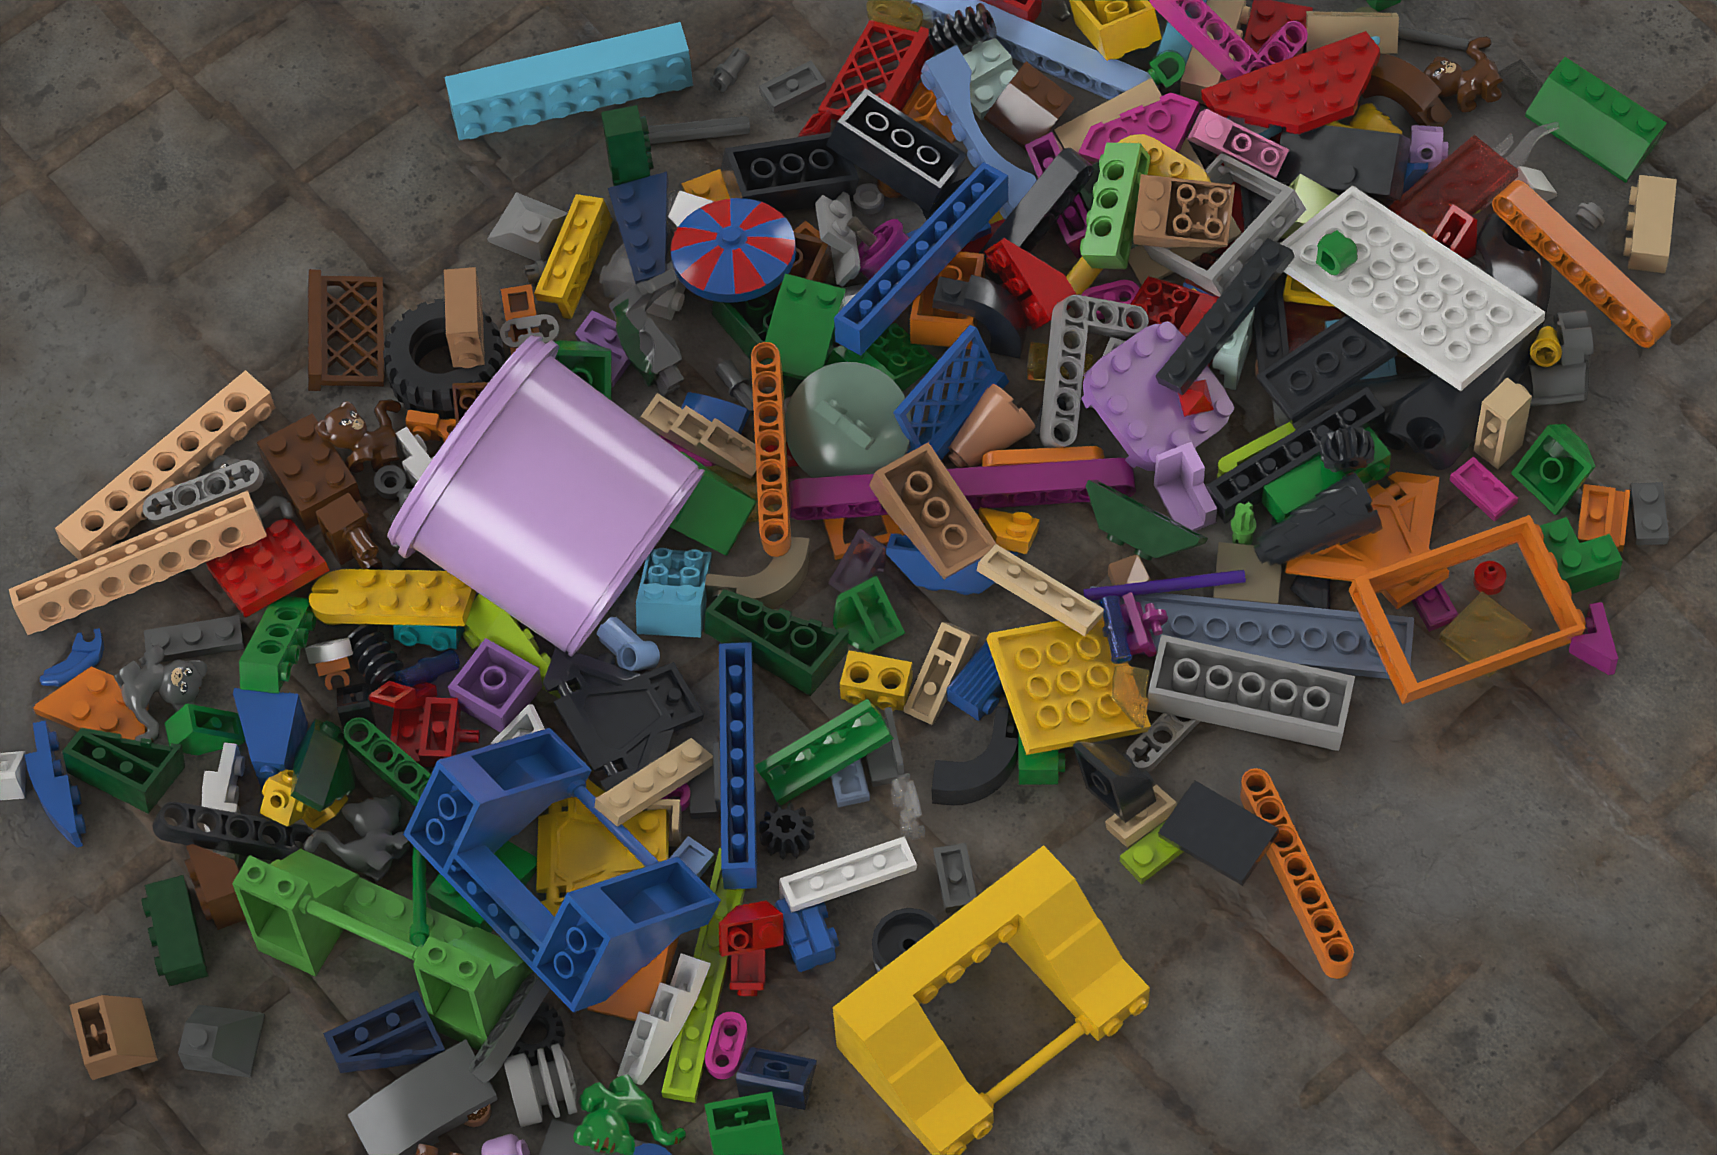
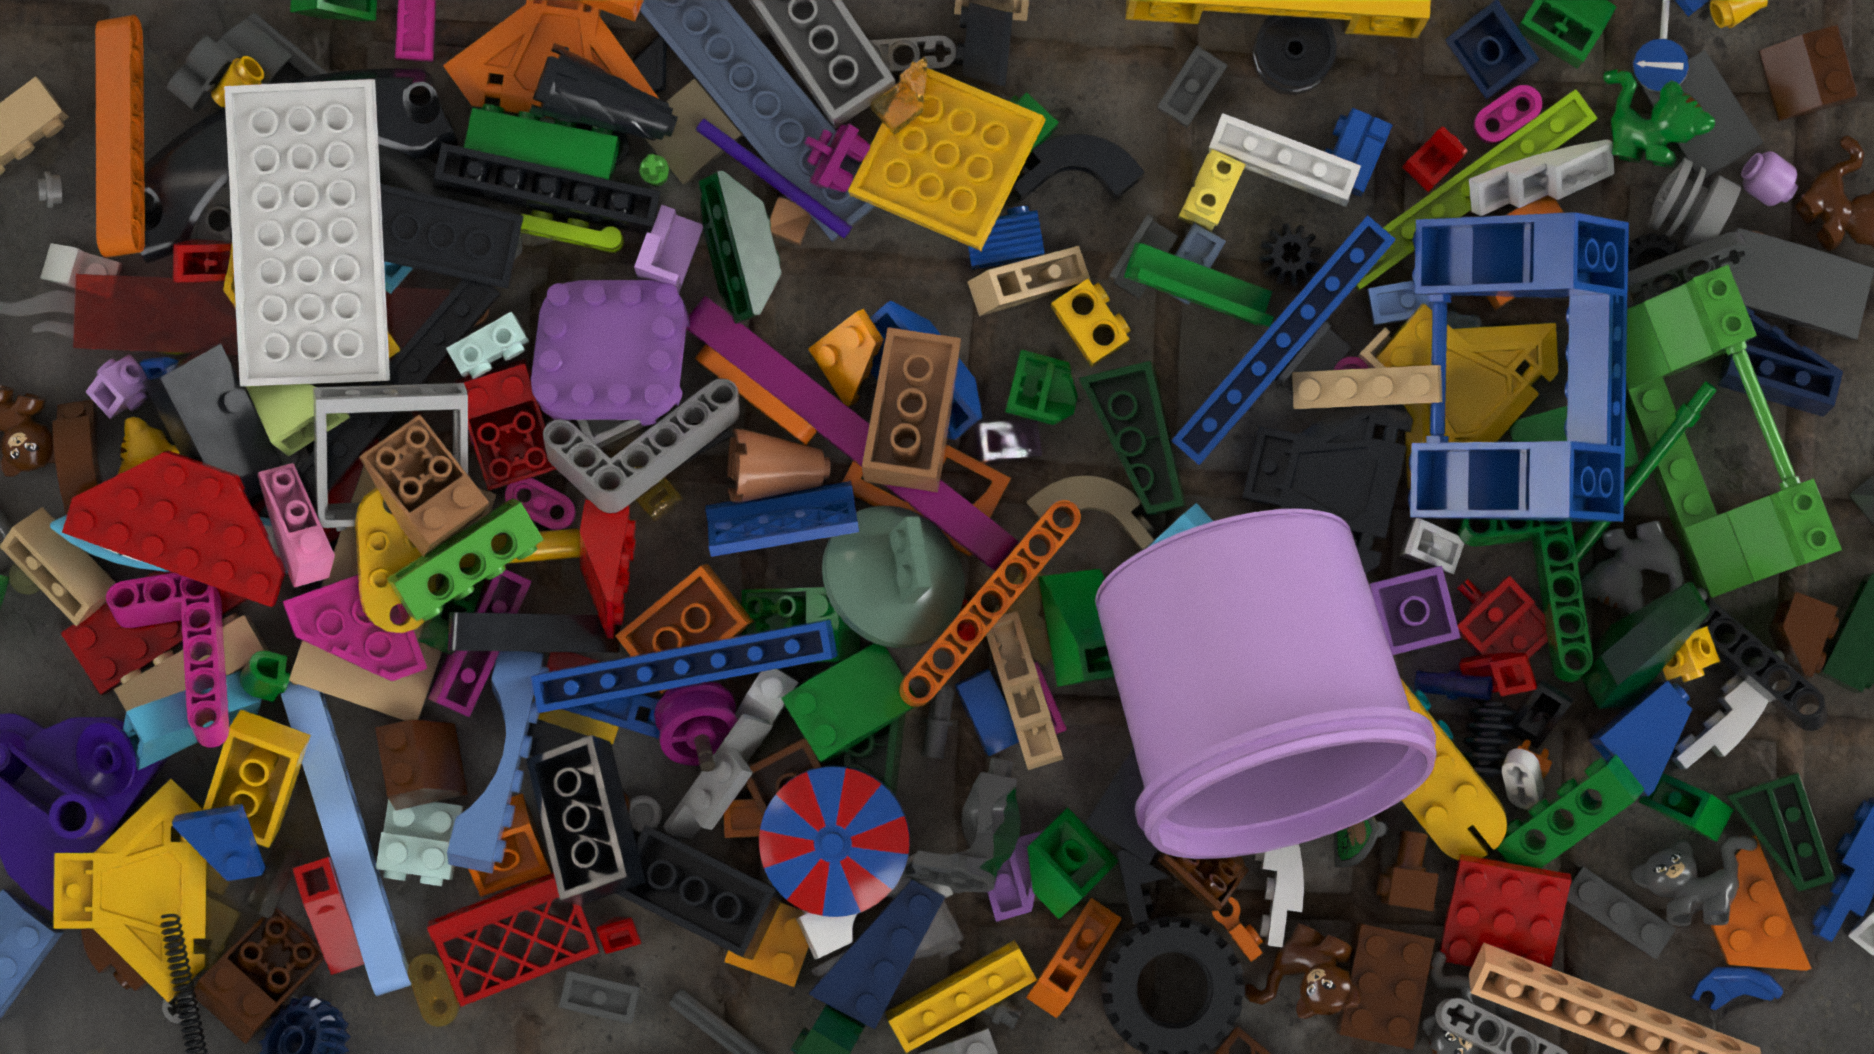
camera: 140 degrees left, 25 degrees up
(392, 474) = (1320, 877): dark grey plate -> none
(464, 317) = (1144, 978): medium nougat brick -> none
(528, 323) = (1076, 941): light grey beam -> none
(750, 928) = (1403, 184): red slope -> none
(874, 812) = (1211, 190): none -> light yellow hips
(905, 796) = (1179, 174): clear plate -> none
(963, 29) = (403, 896): black piece -> none
(989, 305) = (667, 571): black arch -> none
(1040, 590) = (894, 251): tan plate -> none
(1115, 630) = (864, 162): clear blue pin -> none
(1196, 399) = (581, 316): red slope -> none
(1225, 316) = (487, 353): black plate -> none
(1336, 253) = (338, 311): green plate -> none
(1347, 449) = (515, 130): black gear -> none
(1502, 422) = (349, 44): tan brick -> none

